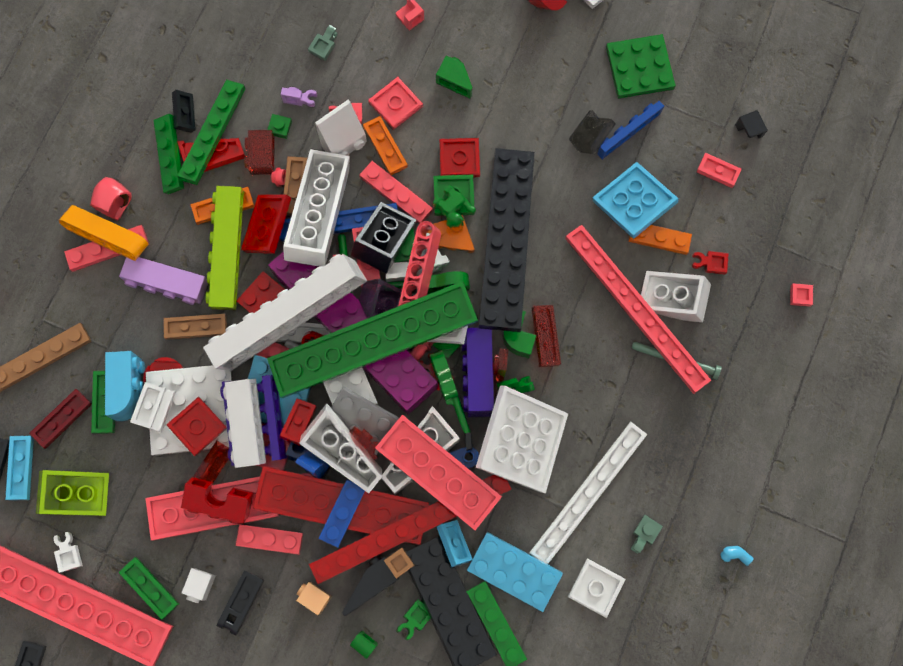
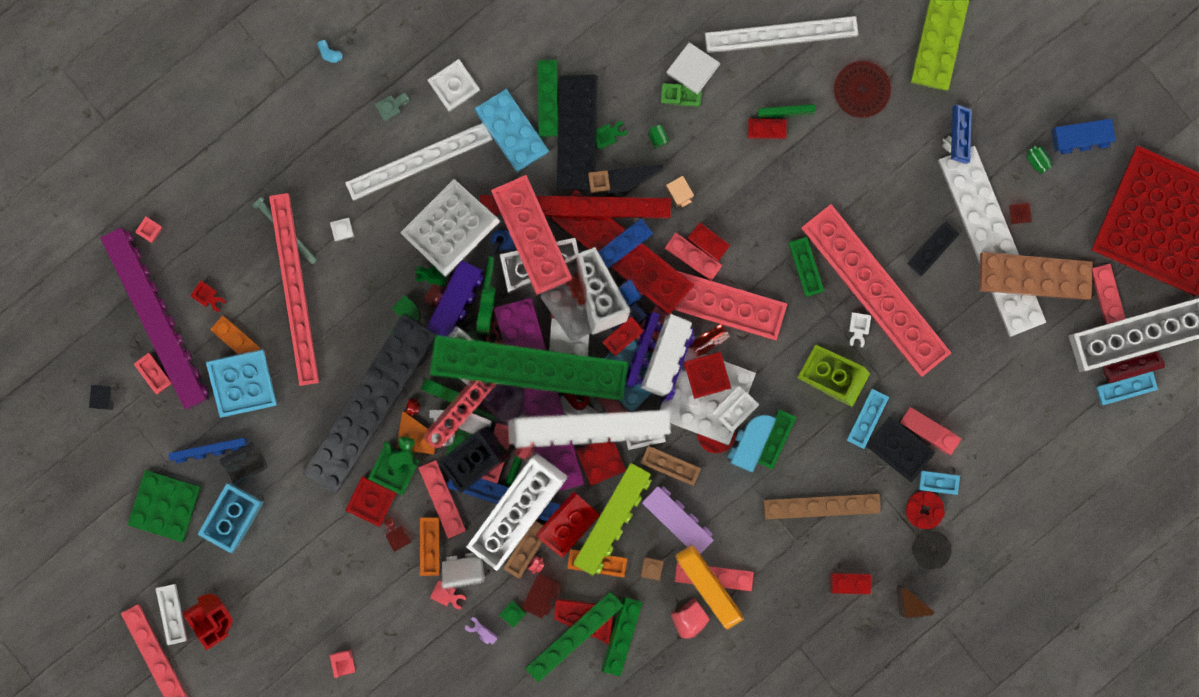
camera: 150 degrees left, 10 degrees up
(60, 418) = (816, 443): dark red plate -> none
(168, 224) = (651, 568): none -> medium nougat brick
(183, 111) = (590, 670): black plate -> none
(198, 585) = (766, 248): white brick -> none
(199, 499) = (731, 311): red arch -> none
(240, 602) = (738, 219): black plate -> none
(259, 561) = (708, 242): none -> red brick
(323, 44) = (436, 671): sand green plate -> none
(395, 103) = (399, 583): coral tile -> none
(420, 140) = (397, 536): none -> clear red plate
(454, 76) = (334, 579): green slope -> none
(454, 543) = (547, 176): medium azure plate -> none
(467, 259) = (412, 406): none -> red plate
(546, 336) = (382, 305): clear red plate -> none
(576, 80) = (230, 518): none -> medium azure brick
(624, 388) = (342, 229): none -> white plate
(676, 295) = (255, 283): white slope -> none
(748, 218) = (154, 318): none -> magenta brick

